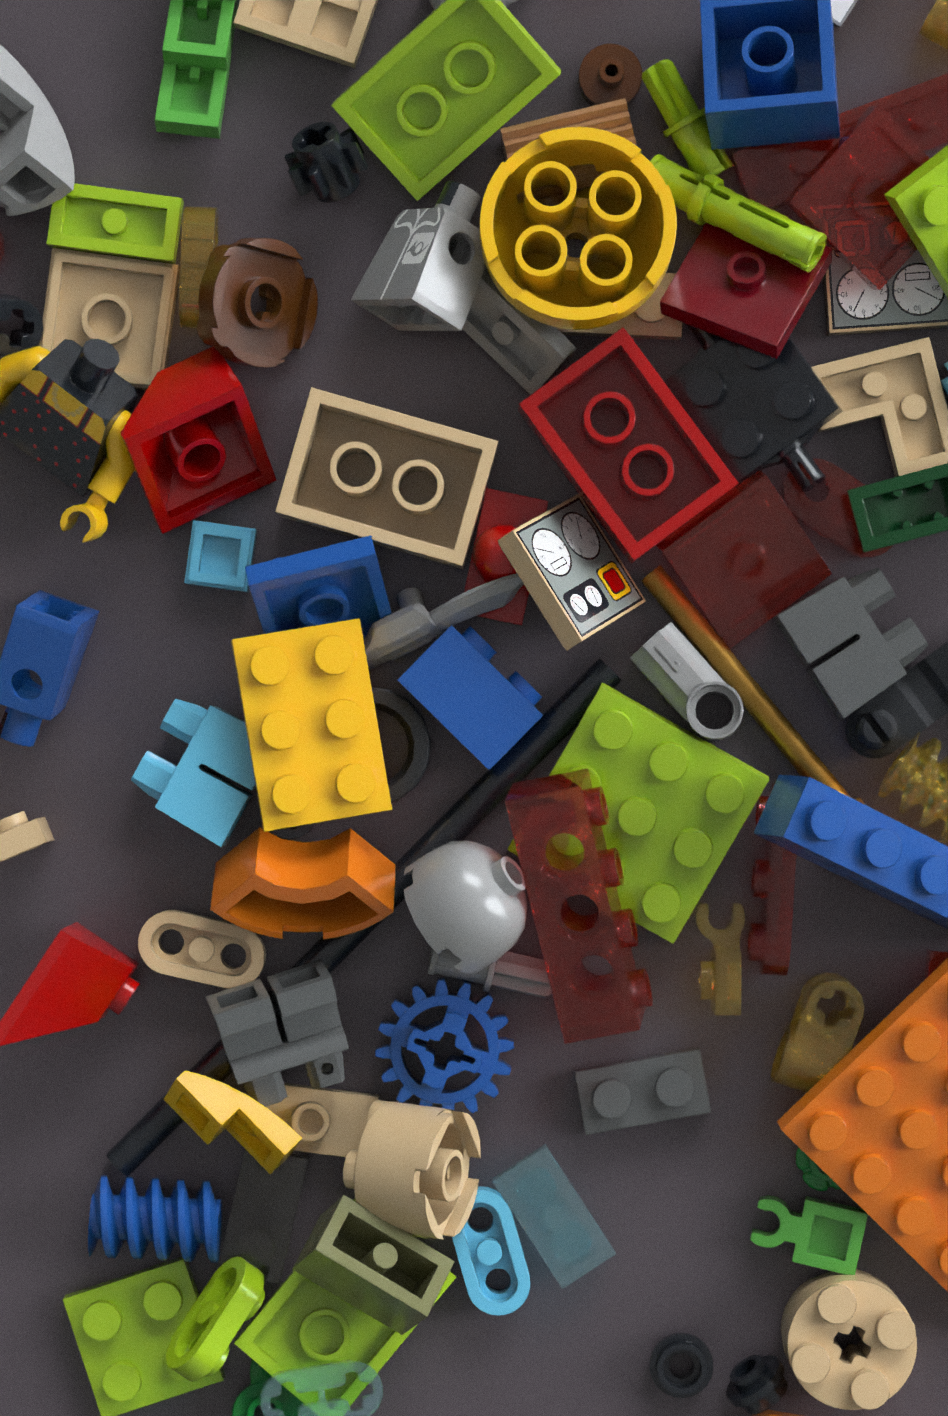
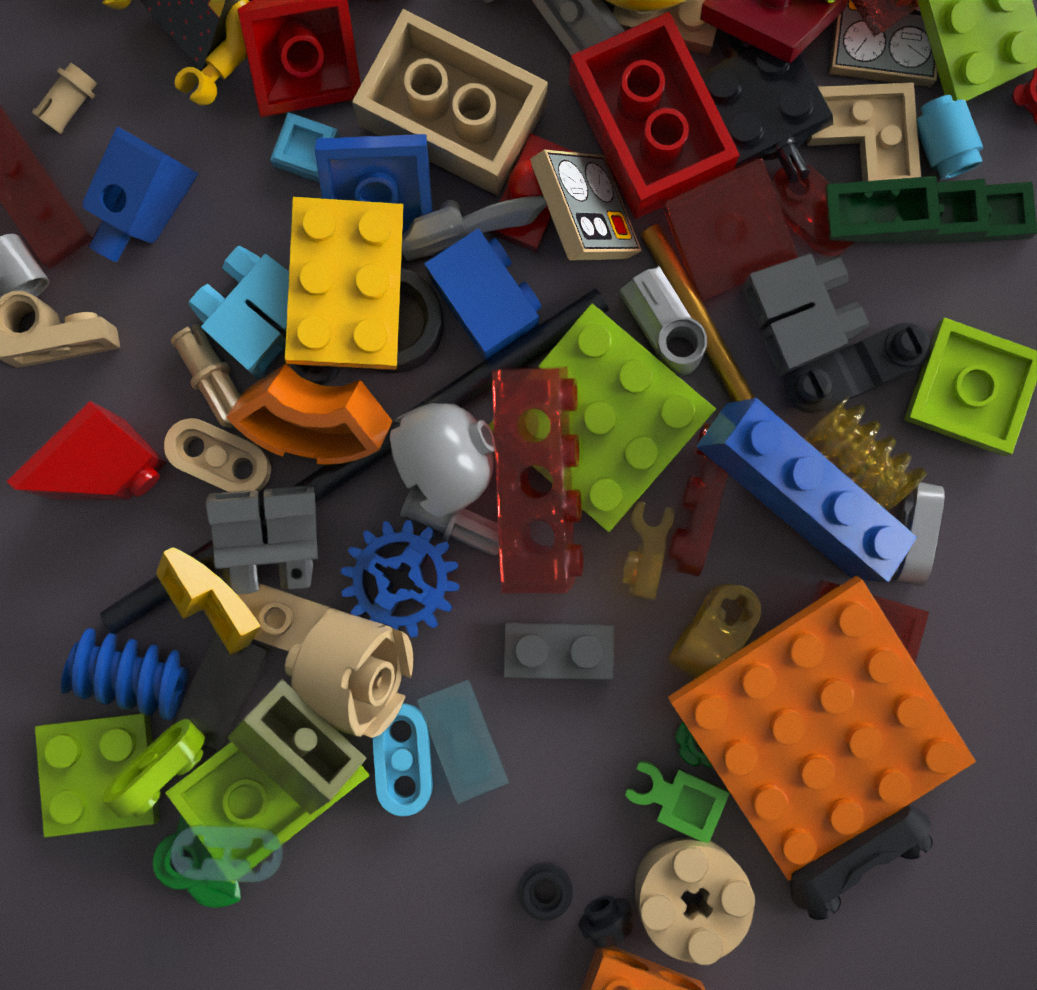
camera: 10 degrees right, 5 degrees down
(169, 853) = (207, 371): none -> tan axle

